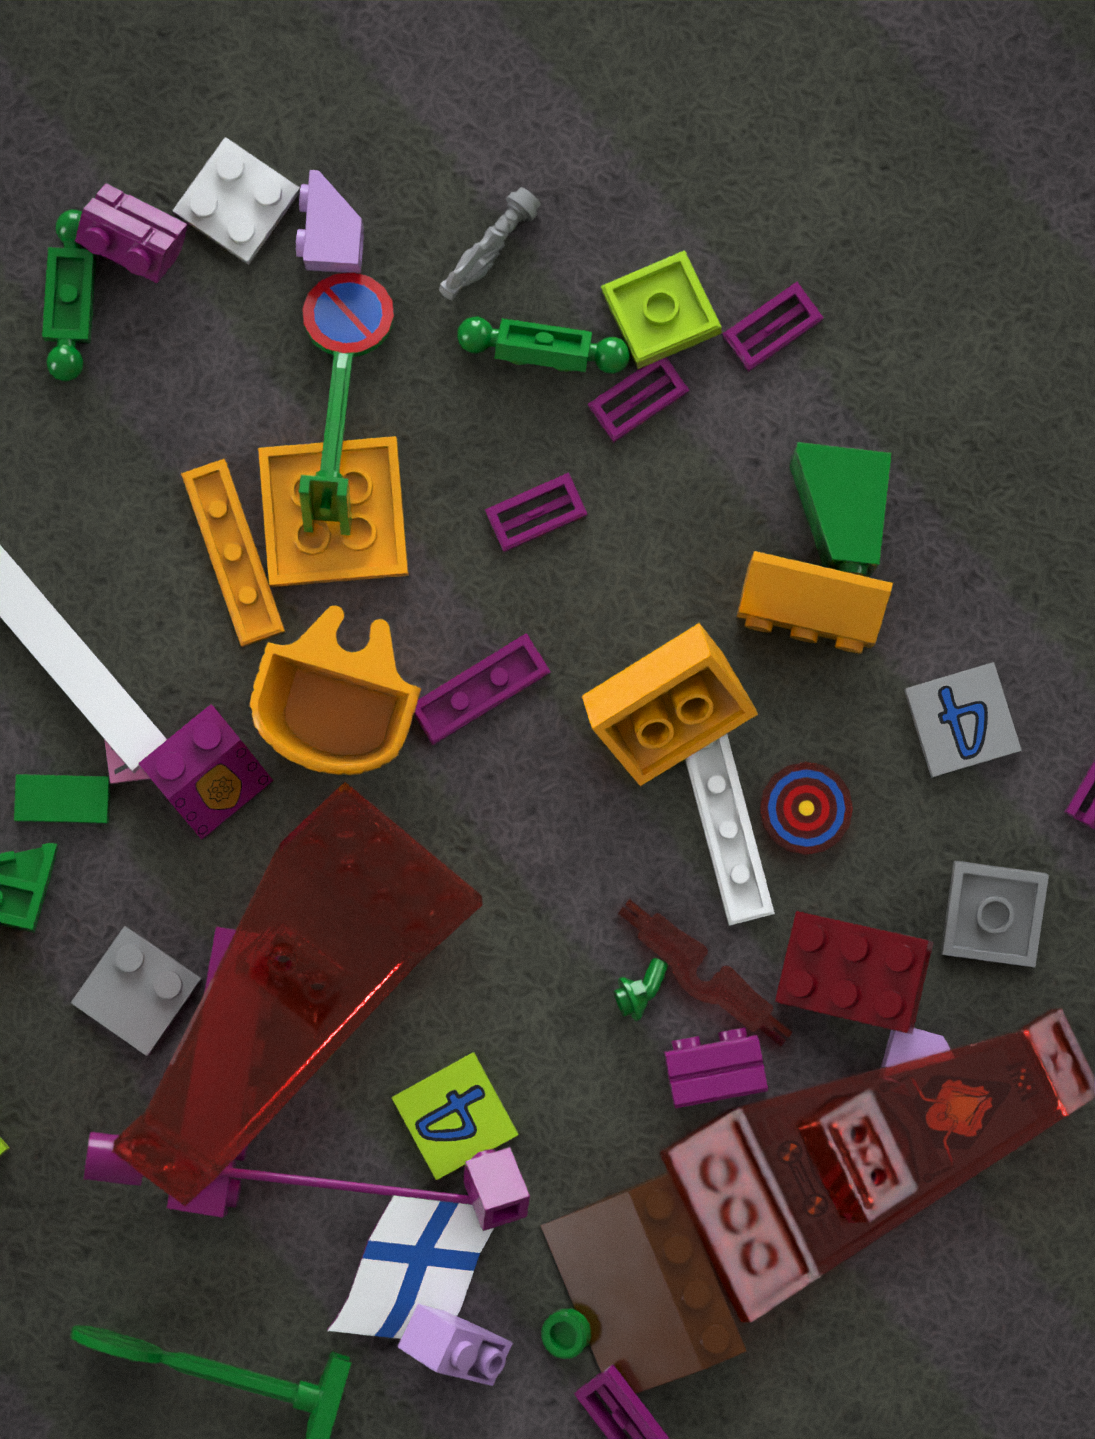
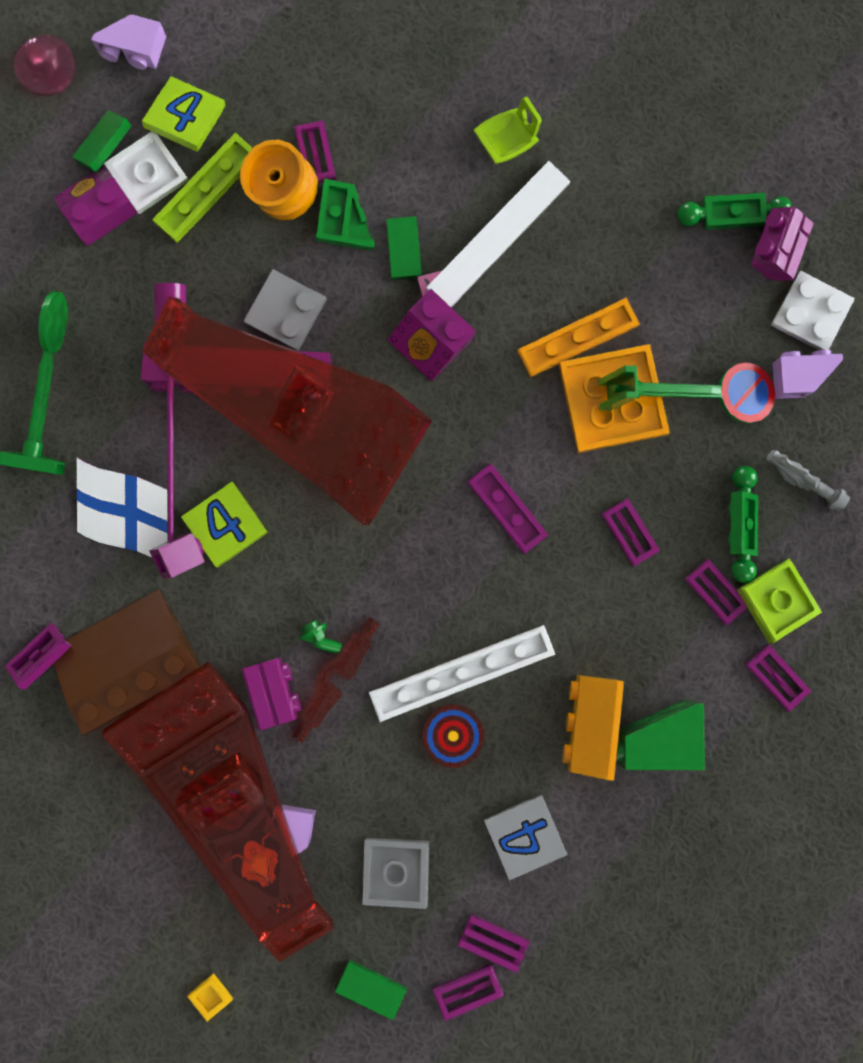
camera: 80 degrees right, 0 degrees up
(331, 704) = (484, 406): light orange piece -> none
(454, 1345) = (72, 540): lavender slope -> none
(566, 1333) = (89, 613): green tile -> none
(668, 705) = (511, 635): light orange slope -> none
(854, 972) = (344, 781): dark red plate -> none

